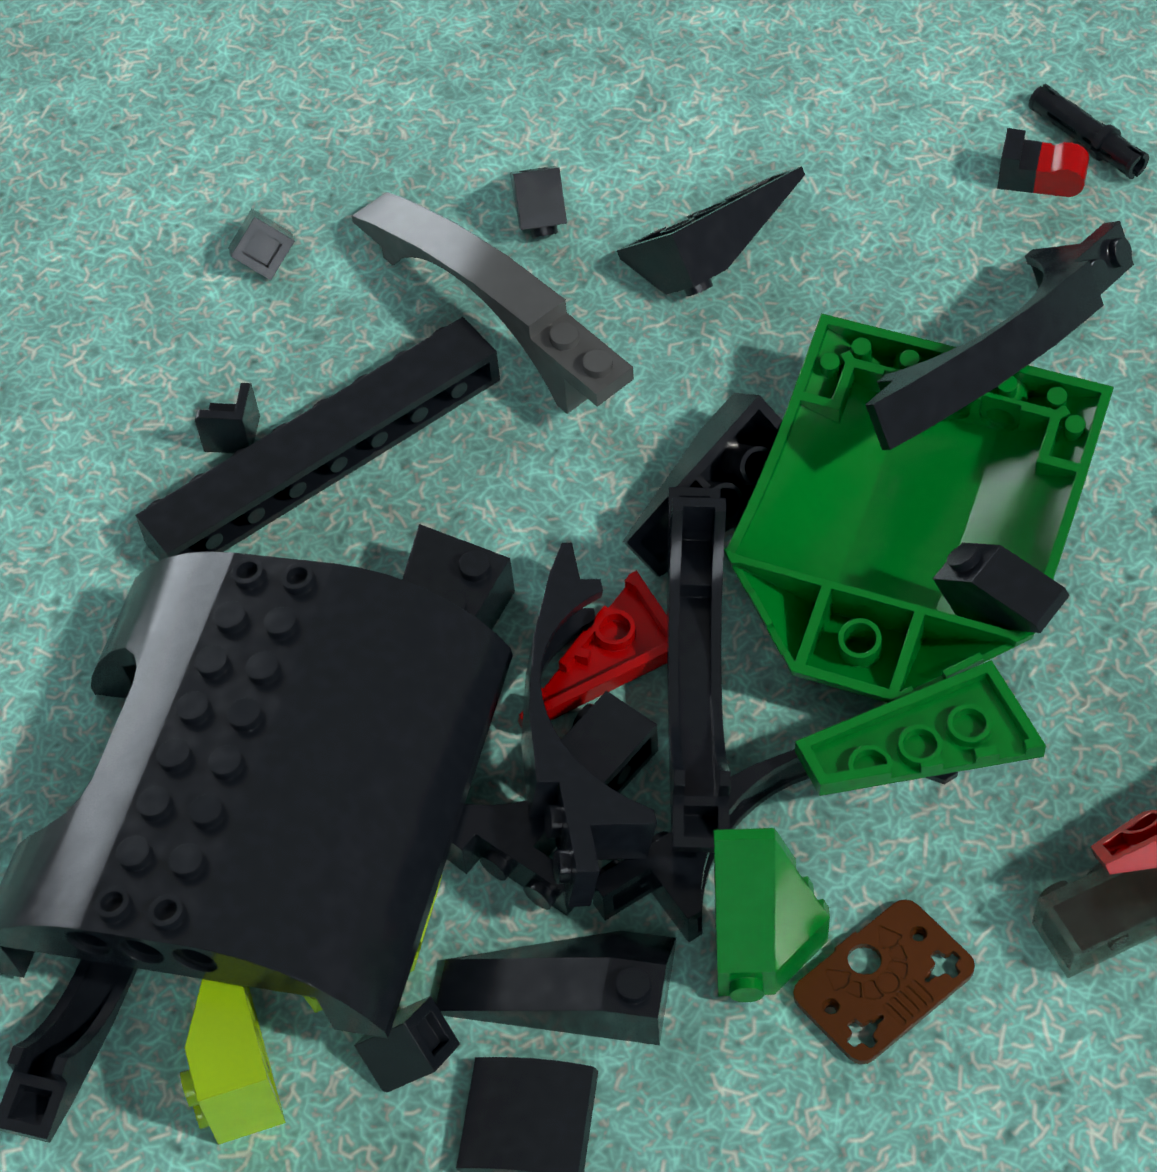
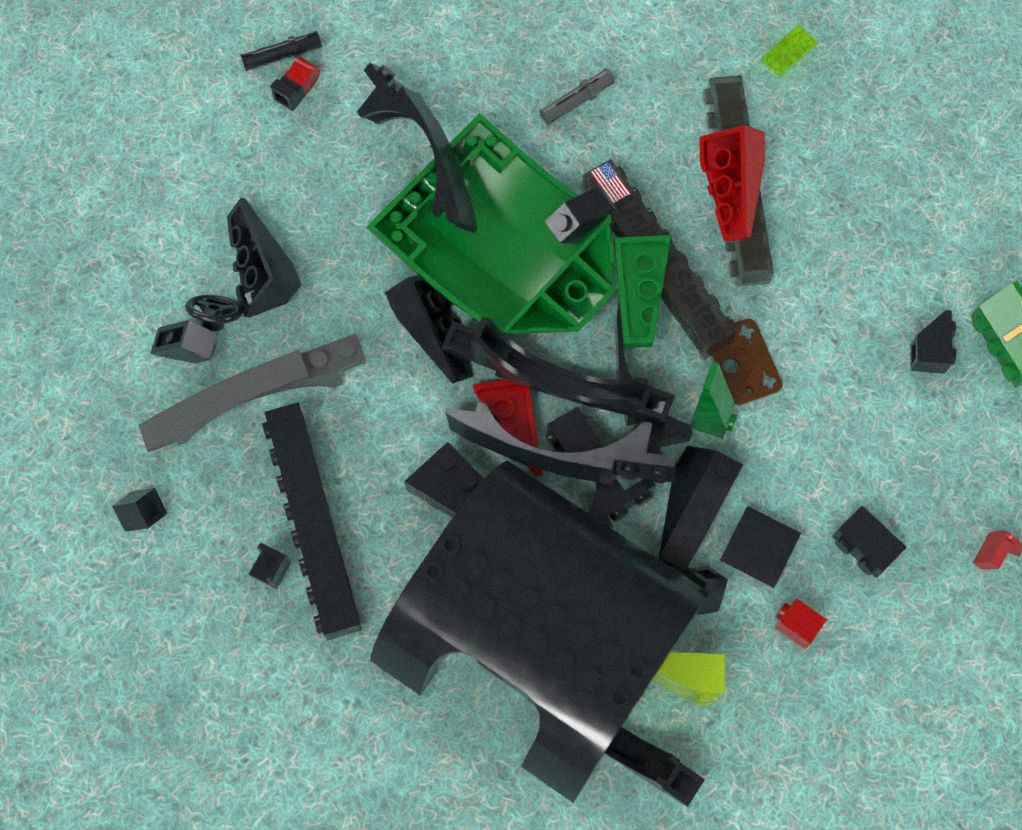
camera: 75 degrees left, 15 degrees up
(597, 212) = (214, 315): none -> black piece
(974, 807) = (682, 288): none -> clear smoke brick

